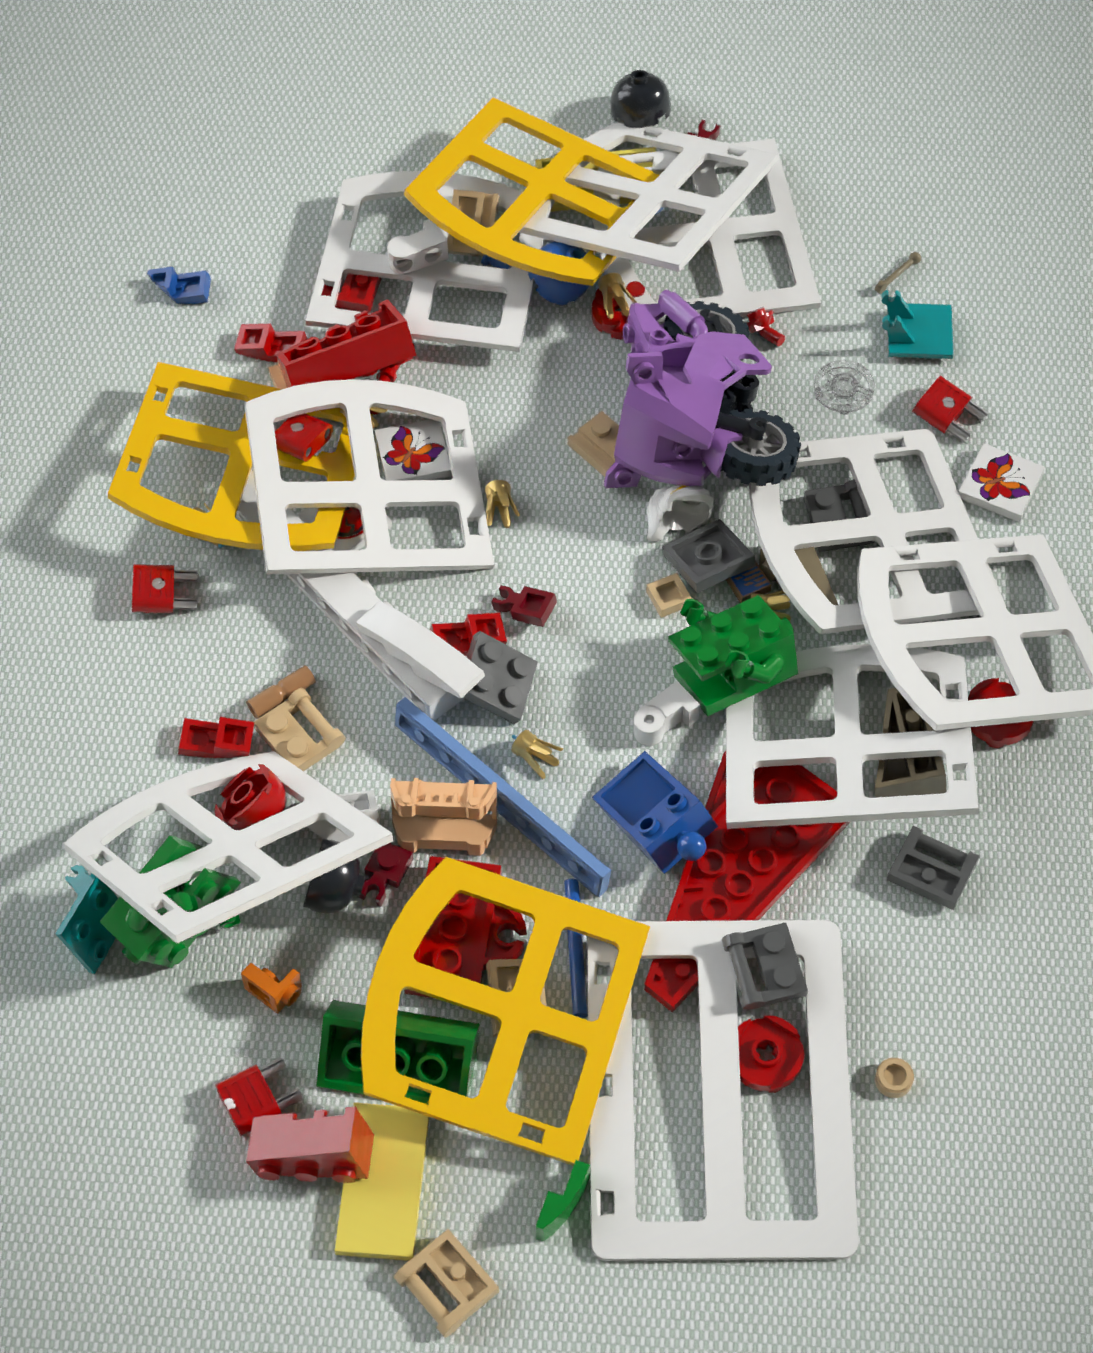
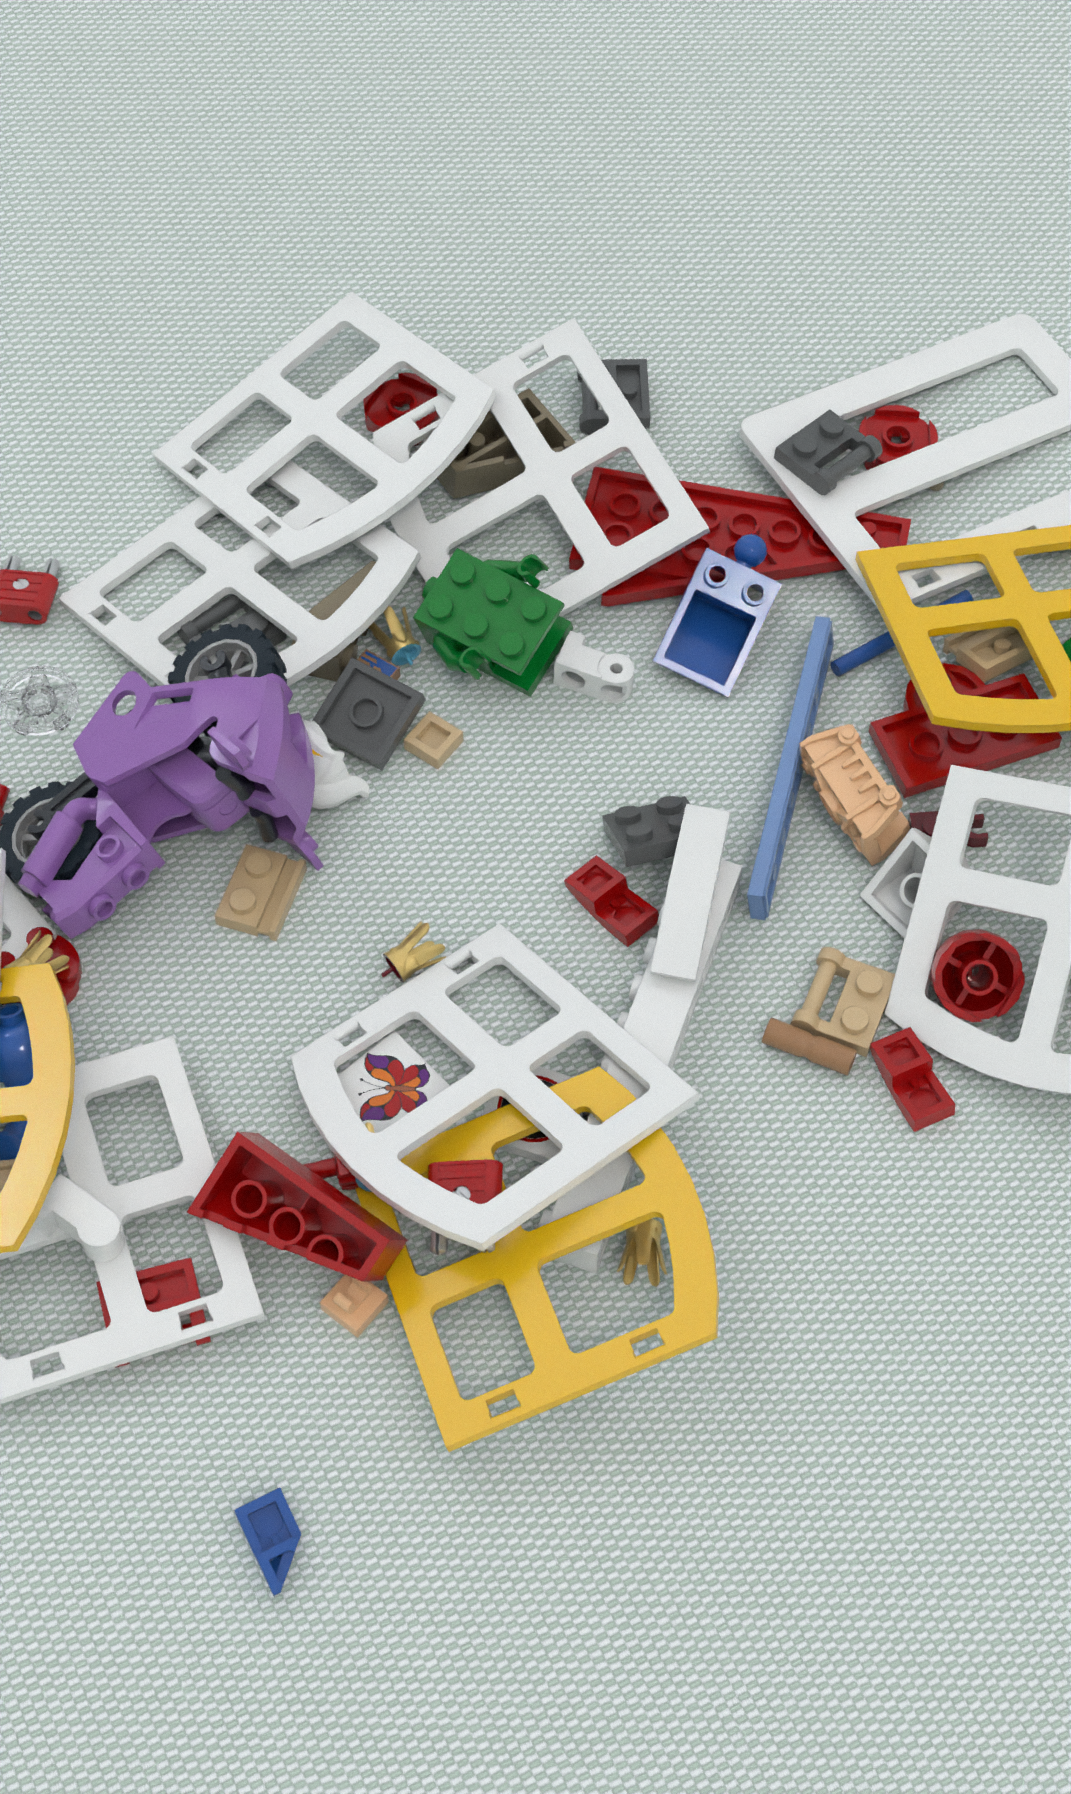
camera: 120 degrees left, 0 degrees up
(155, 589) = (767, 1263): red piece -> none
(263, 343) = (311, 1355): red slope -> none
(335, 888) = (1008, 848): black cylinder -> none
(528, 744) = (713, 771): pearl gold piece -> none
(529, 606) = (536, 856): dark red plate -> none
(894, 1077) = (845, 349): tan tile -> none
(1001, 482) = (100, 512): white tile -> none

